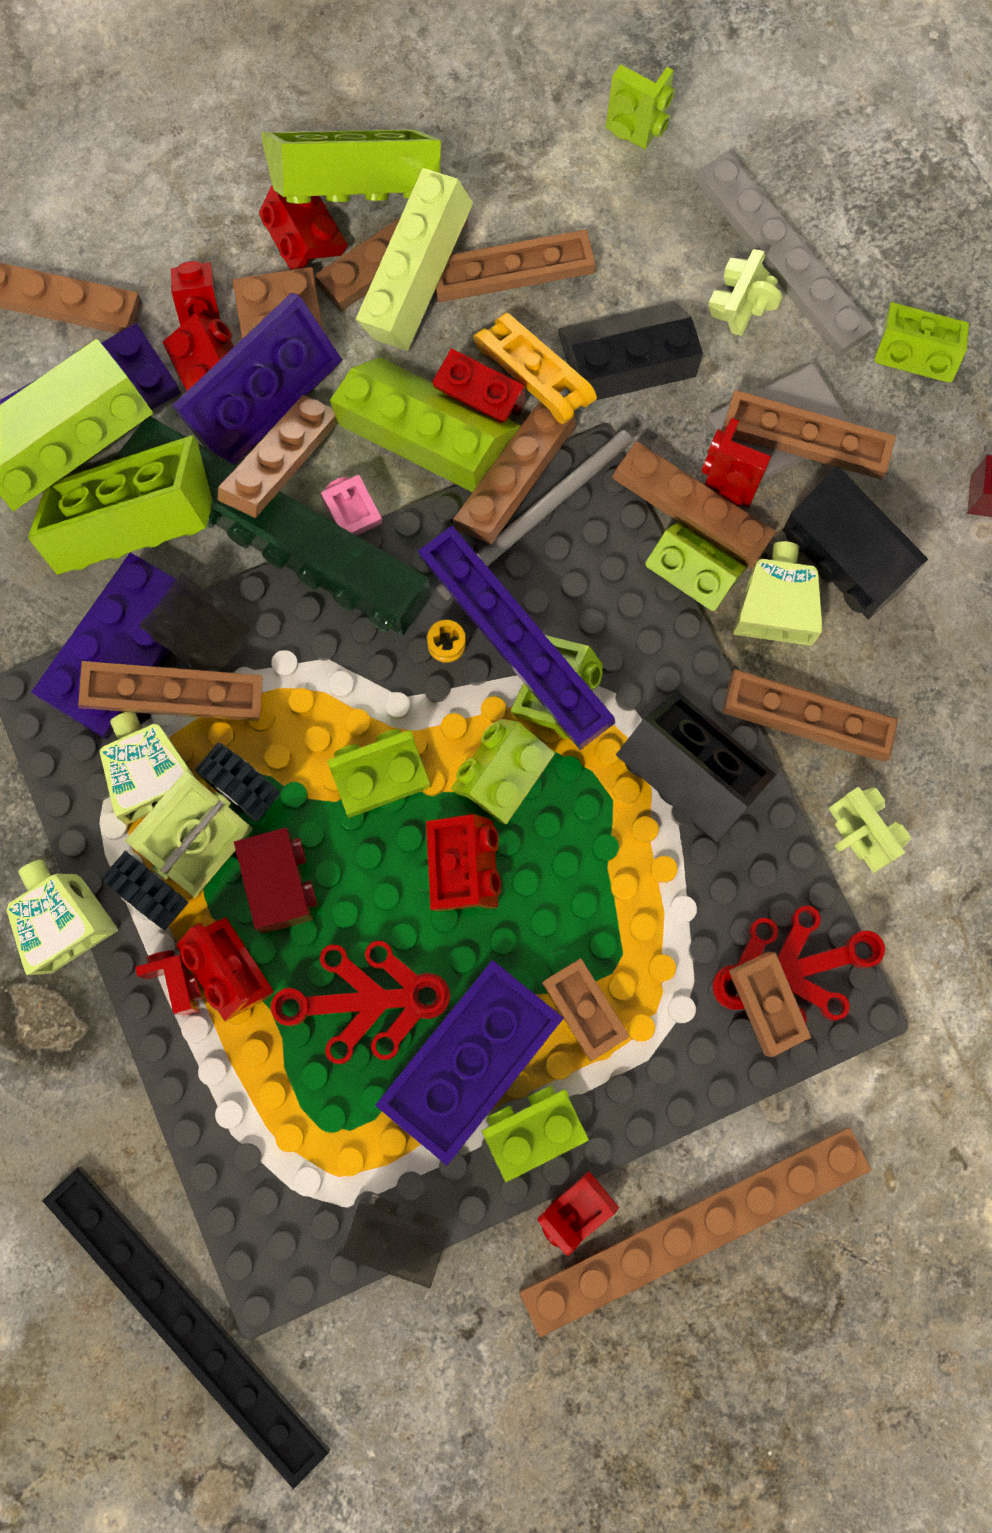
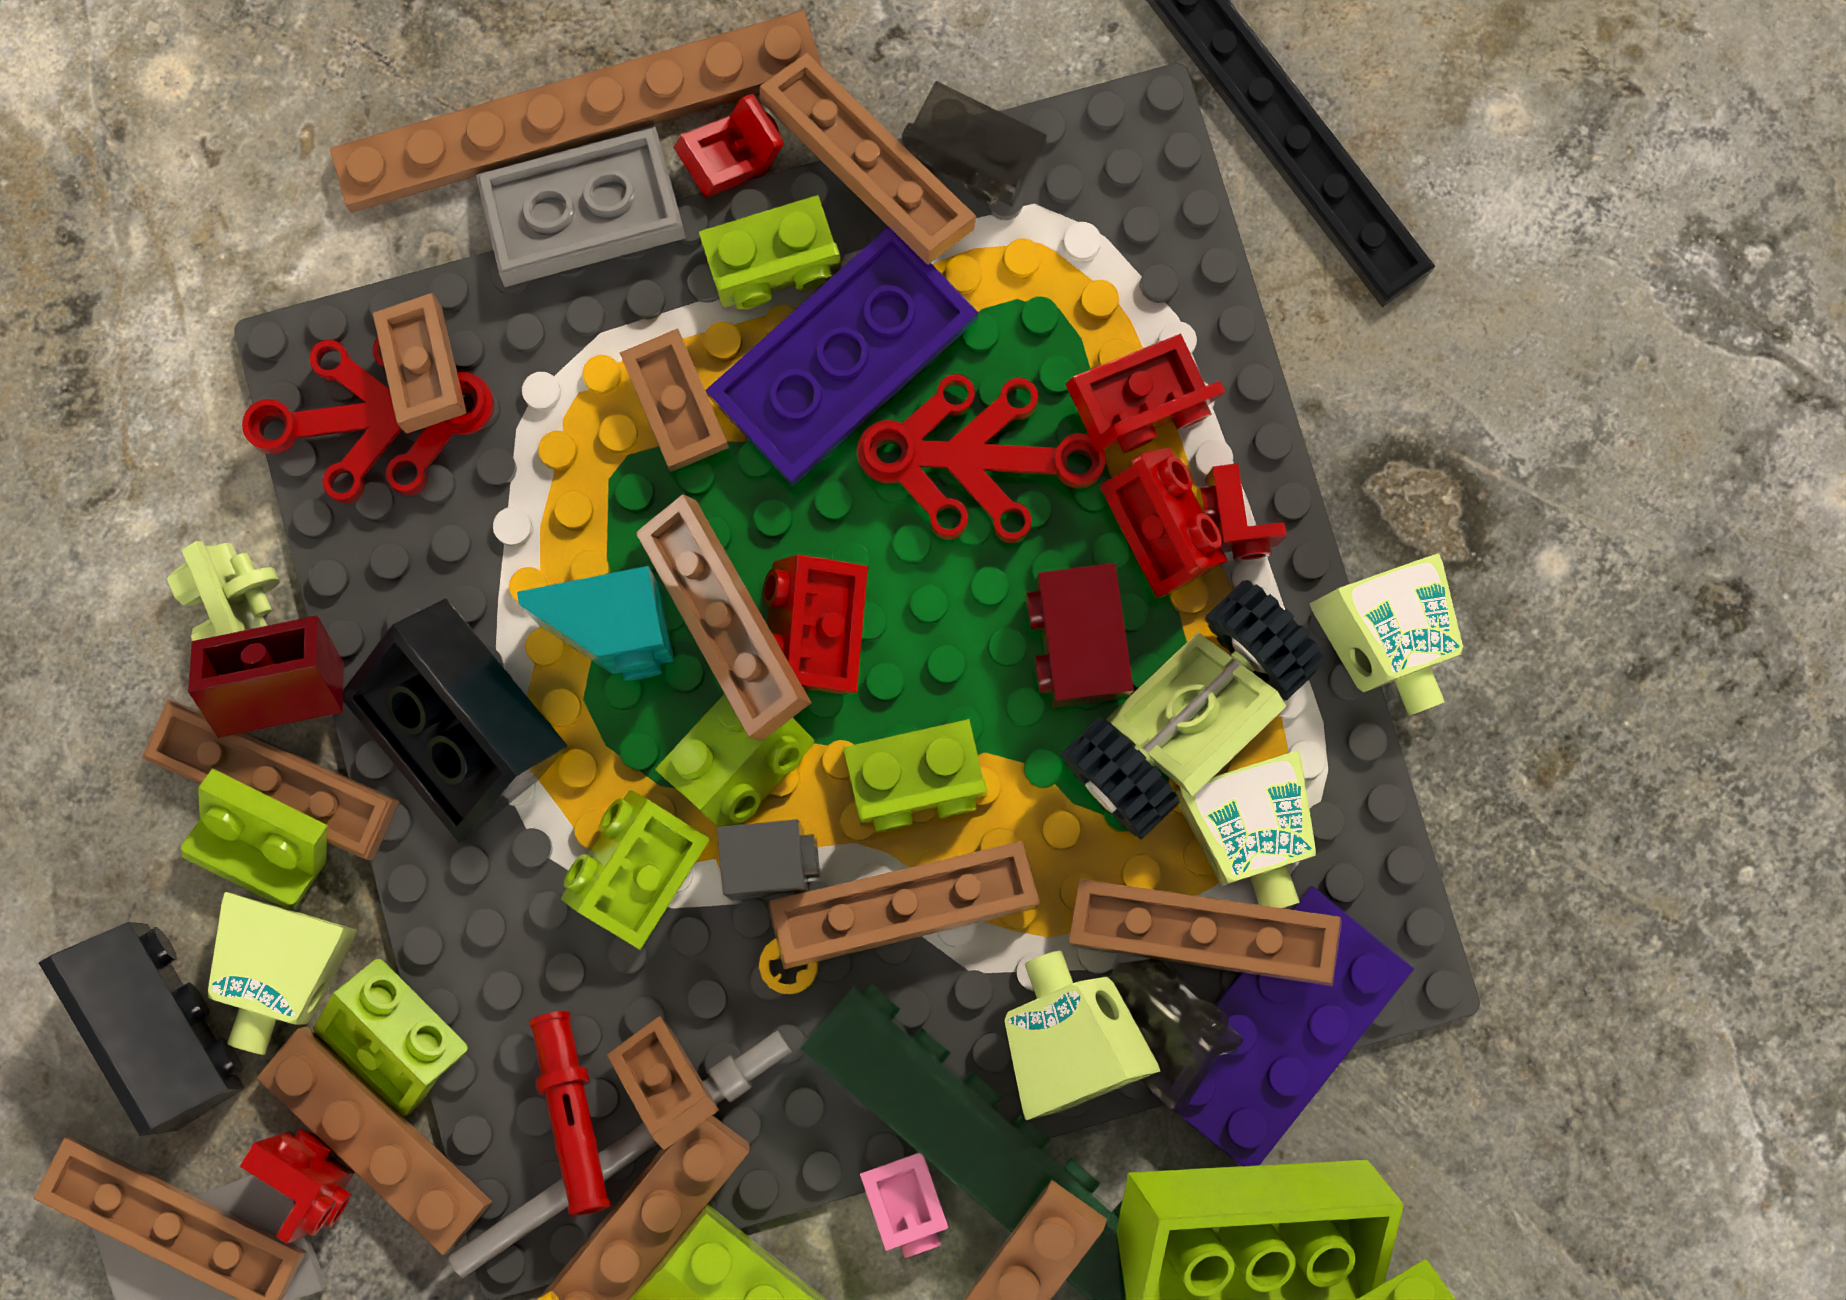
camera: 170 degrees left, 5 degrees up
(247, 1058) = (1140, 393): none -> red bracket
(250, 609) = (1072, 1040): none -> yellowish green torso
(374, 683) = (903, 904): none -> medium nougat plate
(468, 693) = (766, 859): none -> dark grey brick
(473, 1215) = (867, 158): none -> medium nougat plate
(515, 550) = (662, 1083): none -> medium nougat plate
(517, 638) = (684, 939): dark purple plate -> none
(524, 853) = (723, 618): none -> medium nougat plate
(578, 544) = (569, 1113): none -> red pin
(603, 836) = (609, 619): none -> teal slope
(679, 1151) = (580, 207): none -> light grey tile
(810, 669) = (255, 841): none -> lime bracket
(826, 772) = (266, 676): none -> dark red brick

